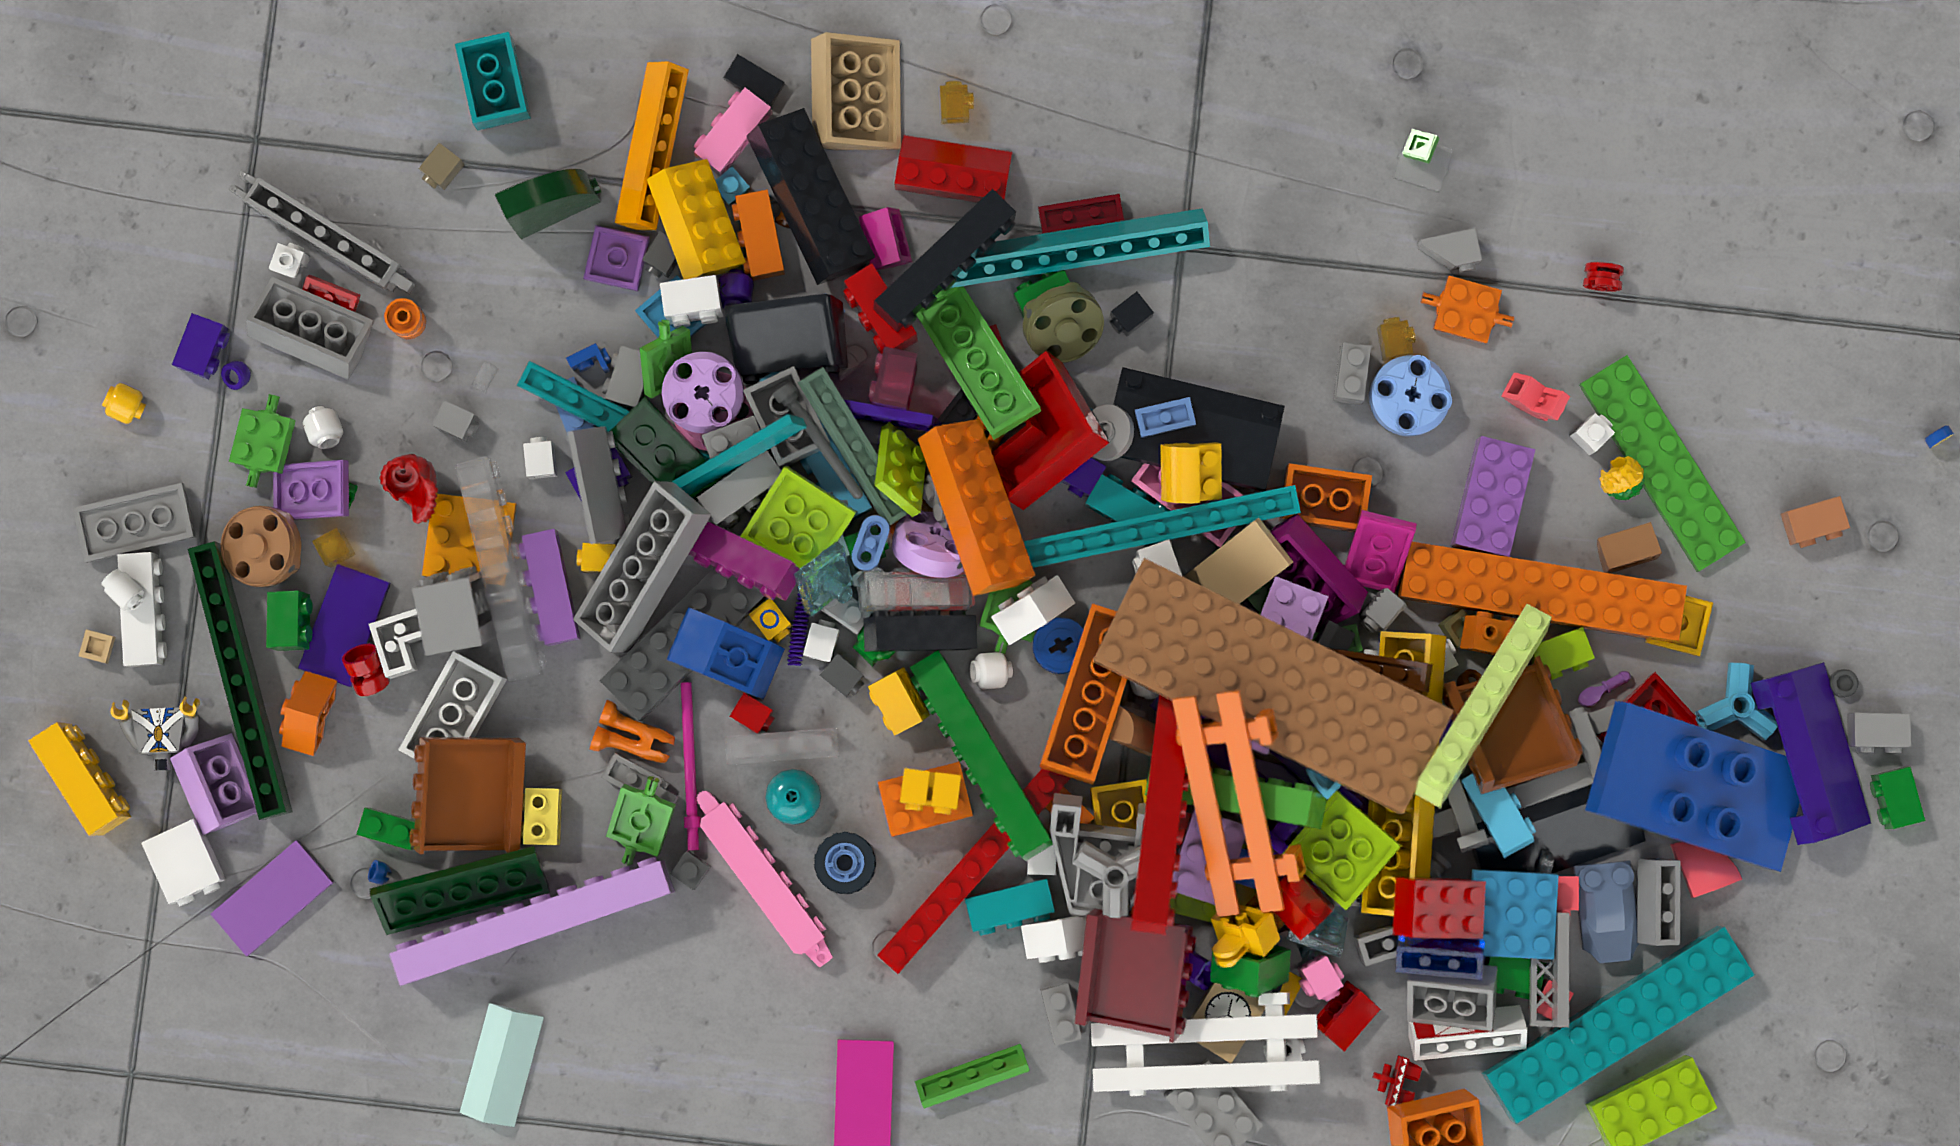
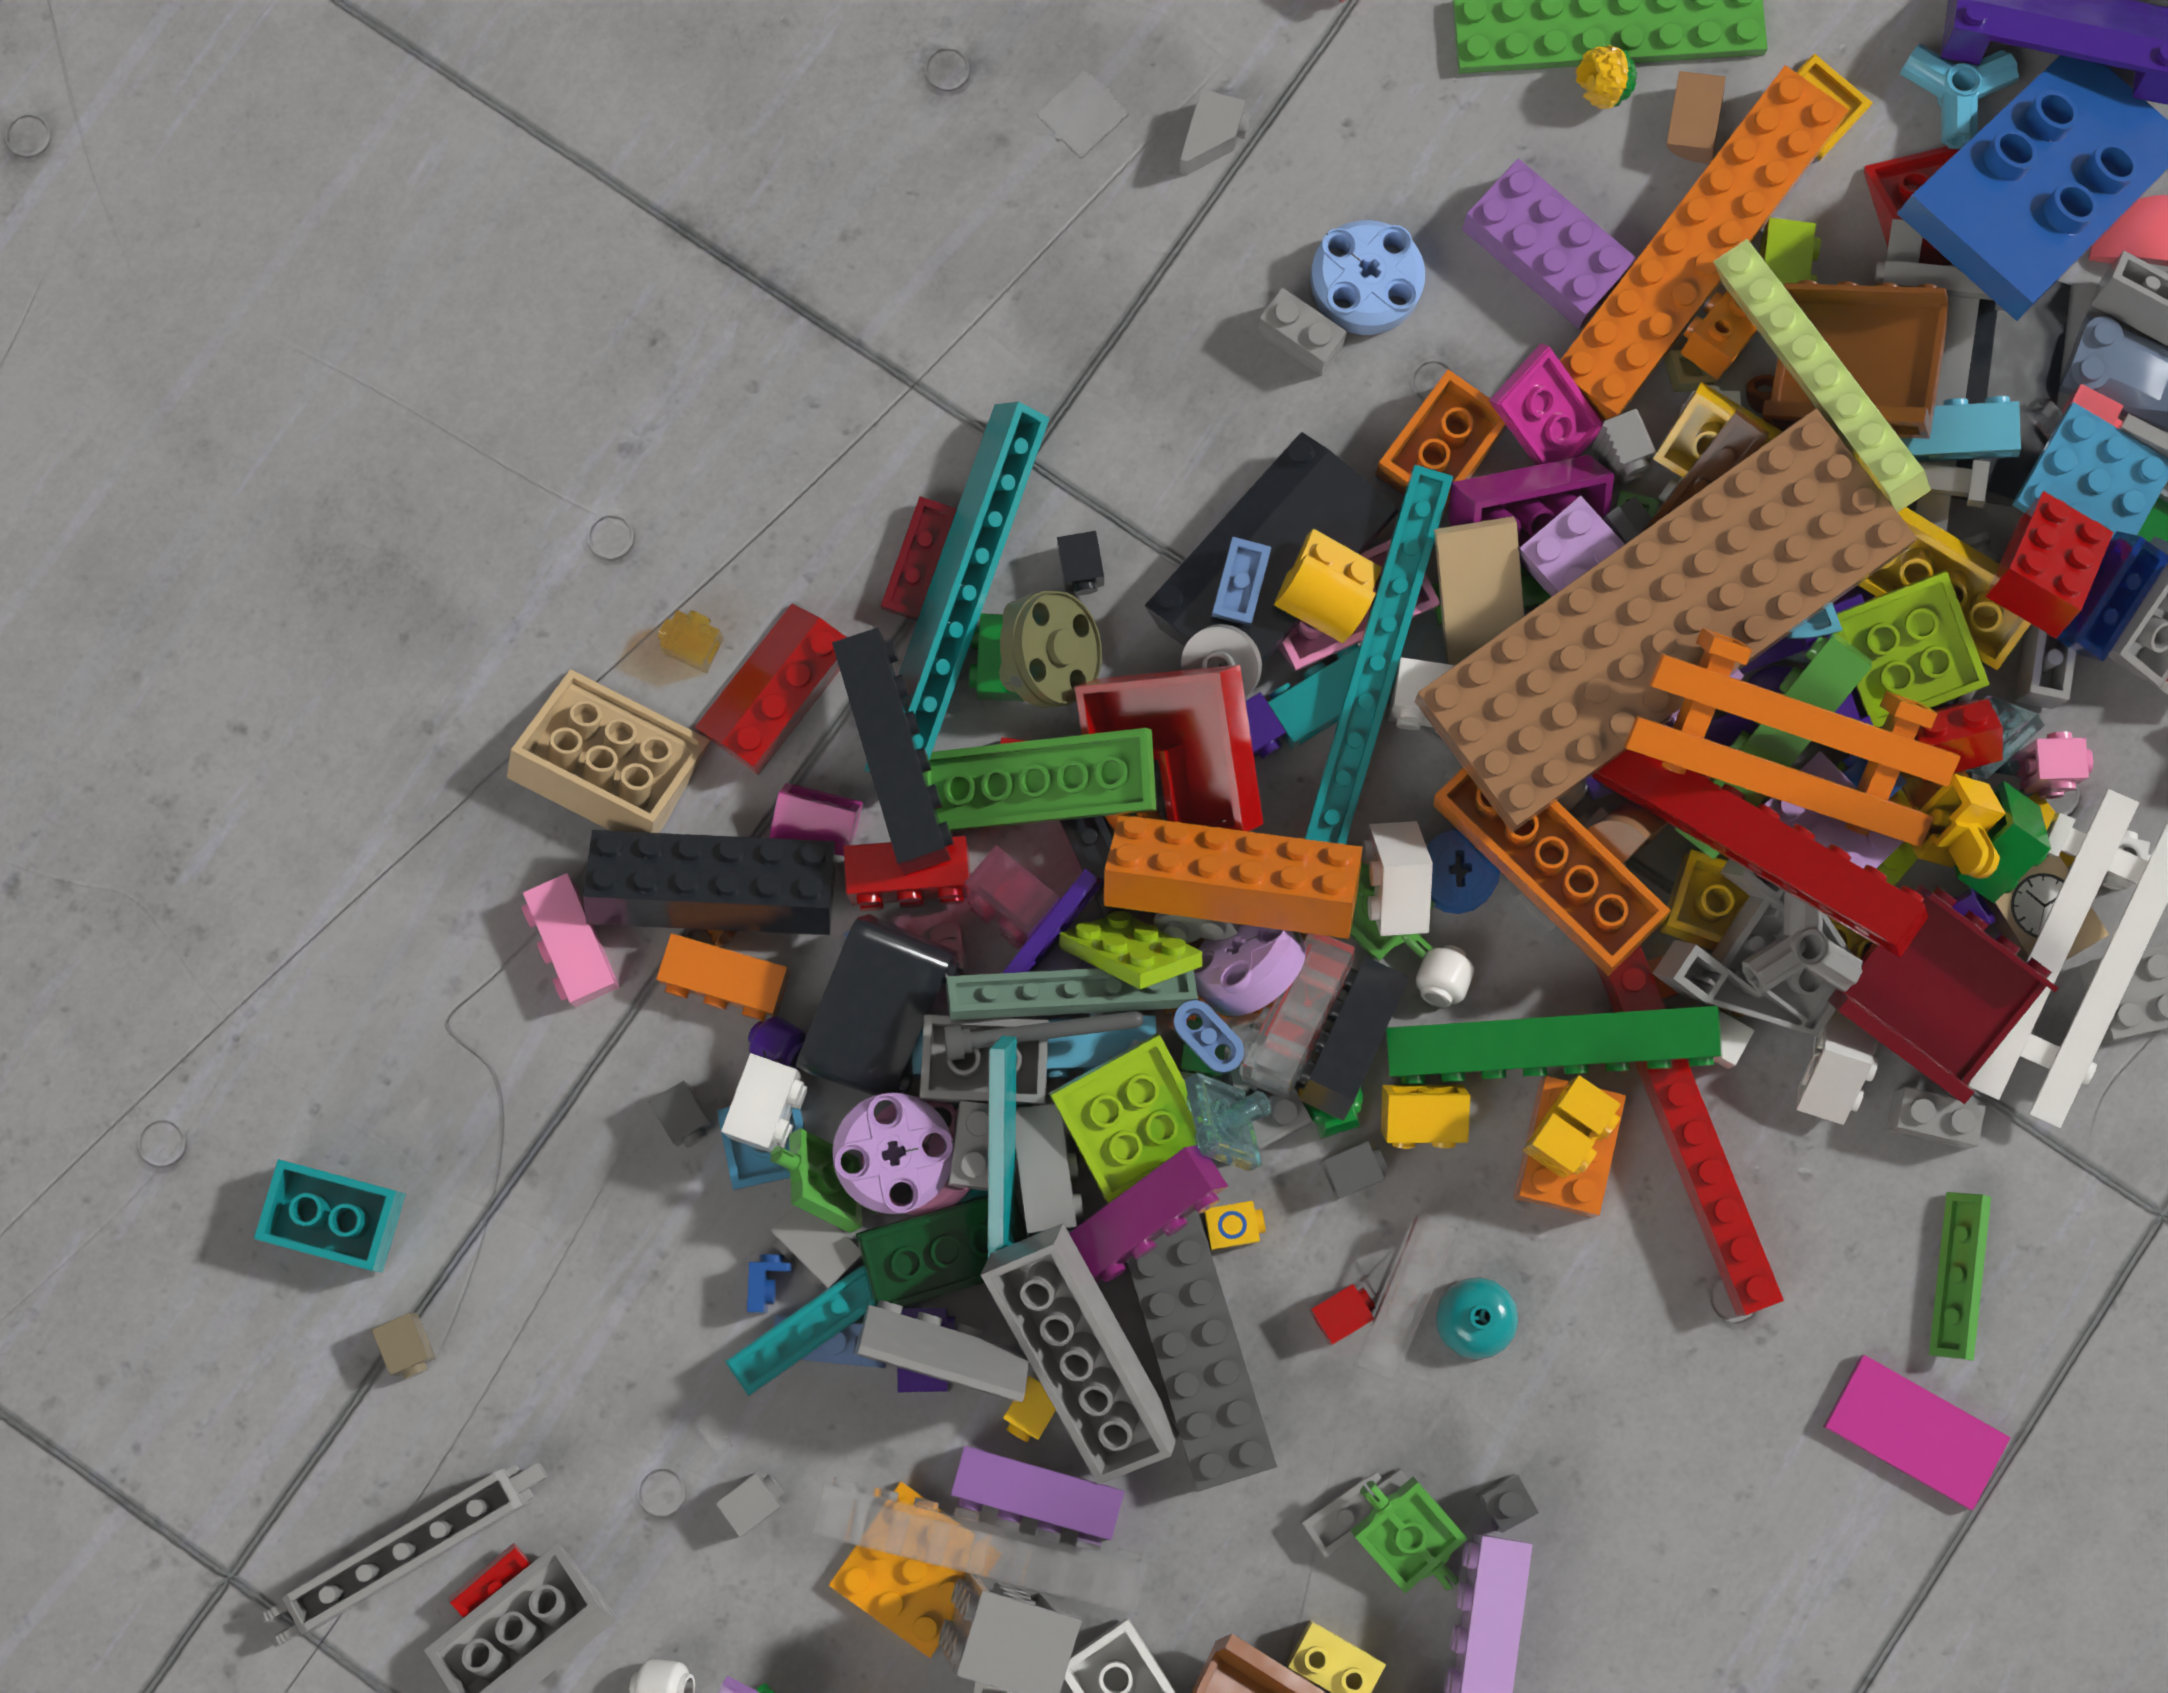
camera: 55 degrees left, 5 degrees down
(288, 259) = (414, 1615): white bracket -> none
(405, 318) = (578, 1499): orange wheel -> none
(414, 485) = (805, 1603): red piece -> none
(540, 458) = (859, 1417): white brick -> none
(547, 200) = (528, 1224): dark green brick -> none
(613, 718) = (1313, 1483): orange piece -> none
(616, 258) = (650, 1178): medium lavender tile -> none
(651, 142) = (531, 1053): light orange brick -> none
(692, 820) = (1442, 1467): dark pink bar -> none
(696, 220) = (660, 1045): yellow brick -> none
(725, 653) = (1248, 1306): blue slope -> none
(730, 185) = (638, 981): medium azure plate -> none
(757, 80) = (505, 885): black tile -> none
(762, 879) = (1567, 1415): bright pink hinge -> none
(797, 634) = (1265, 1197): dark purple piece -> none
(821, 641) = (1294, 1173): white brick -> none
(857, 876) = (1625, 1290): black wheel -> none
(1010, 906) = (1763, 1110): teal brick -> none
(1346, 1015) = (2116, 760): red brick -> none
(1395, 338) = (1286, 257): clear yellow brick -> none
(1420, 146) = (1061, 102): tile -> none
(1467, 309) = (1294, 154): orange plate -> none
(1535, 398) = (1451, 129): coral brick -> none
(1593, 433) = (1531, 84): white brick -> none
(1593, 694) = (1855, 255): medium lavender piece -> none

